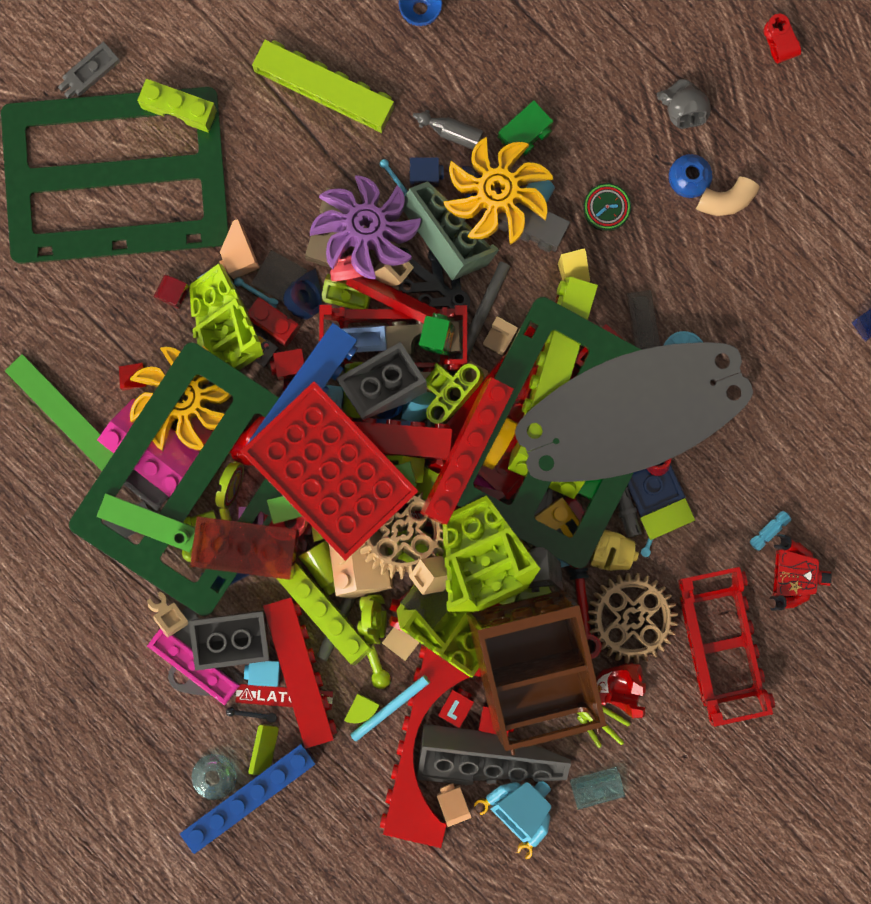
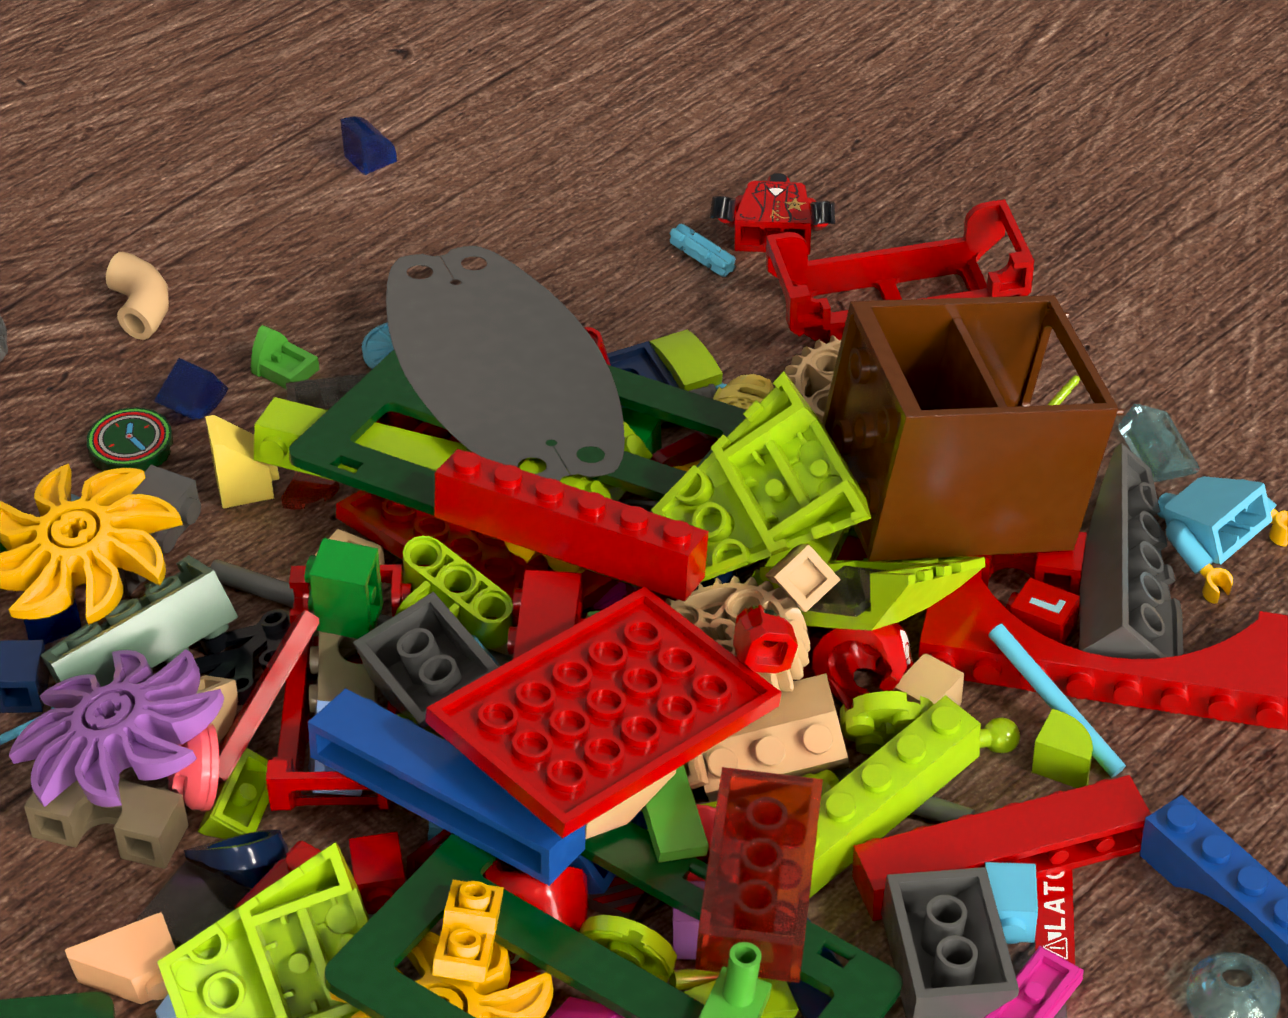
camera: 85 degrees left, 40 degrees down
(214, 408) = (468, 931): none -> yellow slope
(263, 748) = (1164, 910): lime slope -> none
(271, 717) = (1097, 904): black hinge -> none
(378, 552) = (764, 640): none -> red rock
(453, 804) = (1224, 600): light nougat slope -> none
(642, 237) = (191, 390): none -> clear blue brick
(672, 286) = (279, 359): none -> bright green tile
(690, 187) = (92, 351): blue piece -> none

